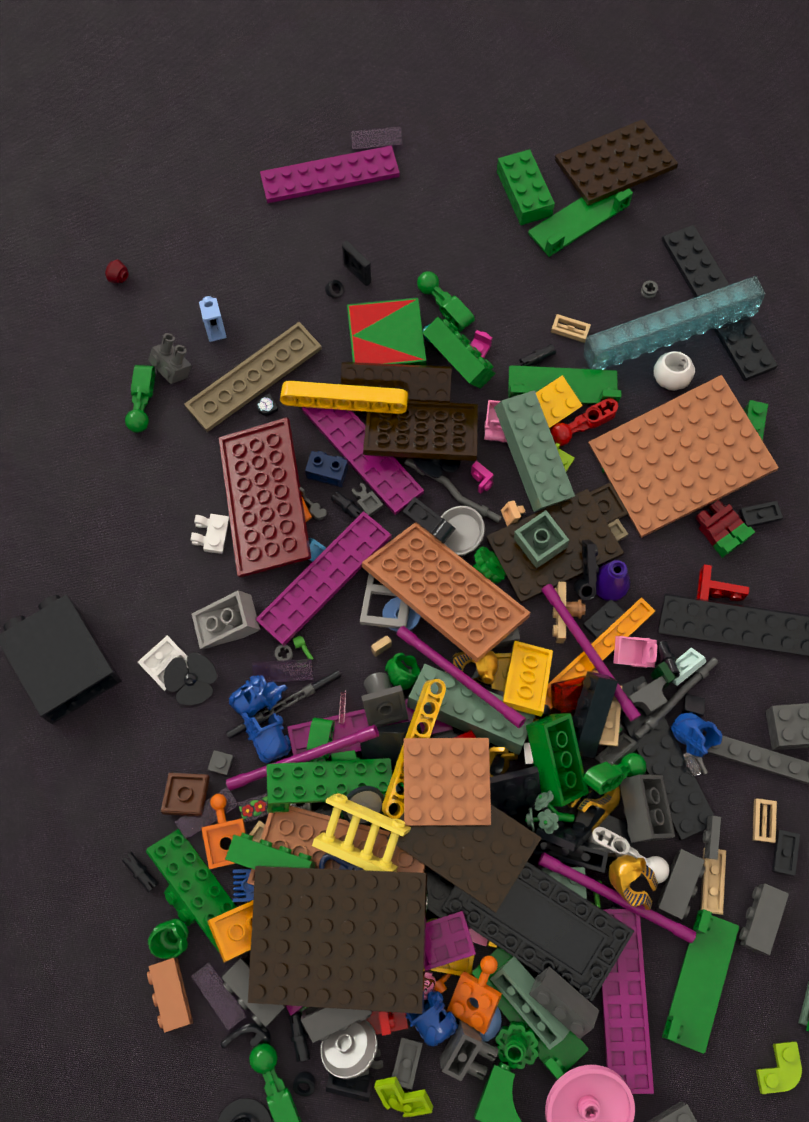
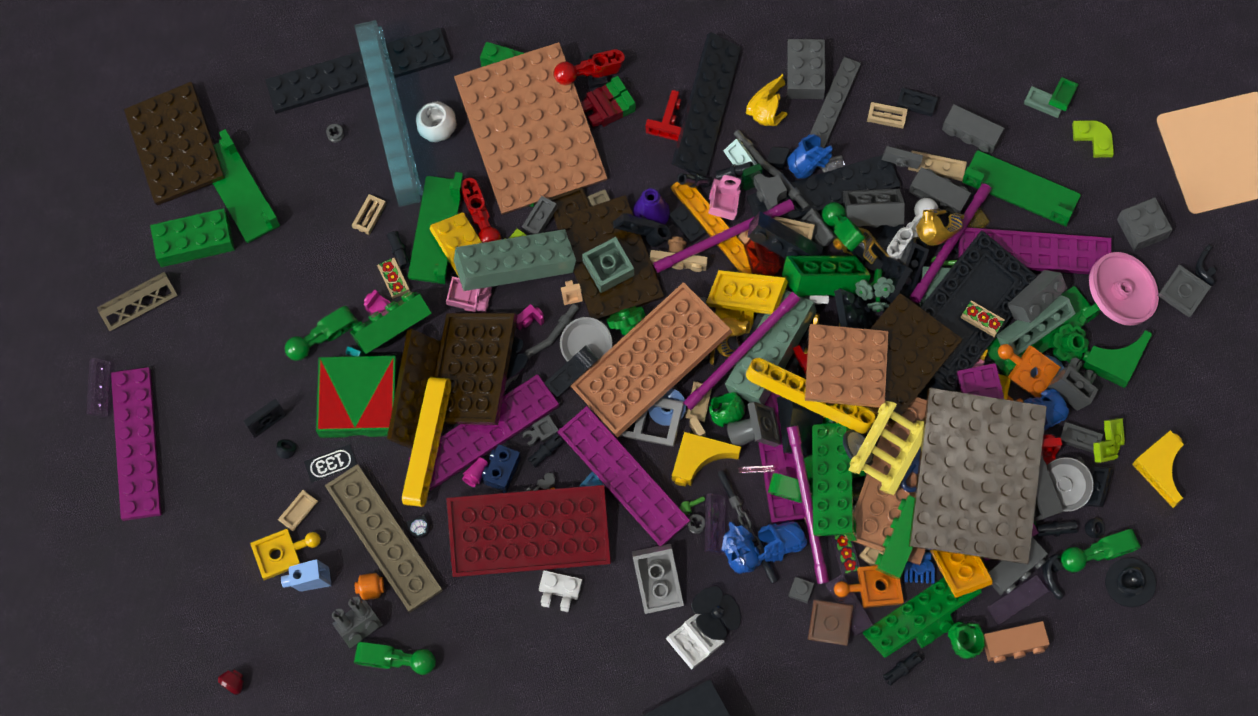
camera: 80 degrees left, 0 degrees up
(207, 370) = (369, 586): none -> orange head
(238, 301) = (280, 541): none -> yellow plate
(276, 305) = (297, 510): none -> tan tile
(320, 444) = (473, 474): none -> dark pink cone
(323, 327) = (330, 463): none -> black sticker
(353, 645) = (696, 453): none -> yellow arch
(401, 646) = (701, 408): none -> tan tile
(466, 153) = (133, 295): none -> dark tan fence
(508, 356) = (393, 278): none -> tile
(527, 937) = (982, 318): none -> tile
(590, 477) = (540, 216): none -> dark grey plate
(650, 617) = (693, 180): none -> black pin
(653, 931) = (979, 220): none -> clear yellow tile
(744, 477) = (598, 66): none -> red beam
(750, 682) = (765, 104): none -> yellow hair

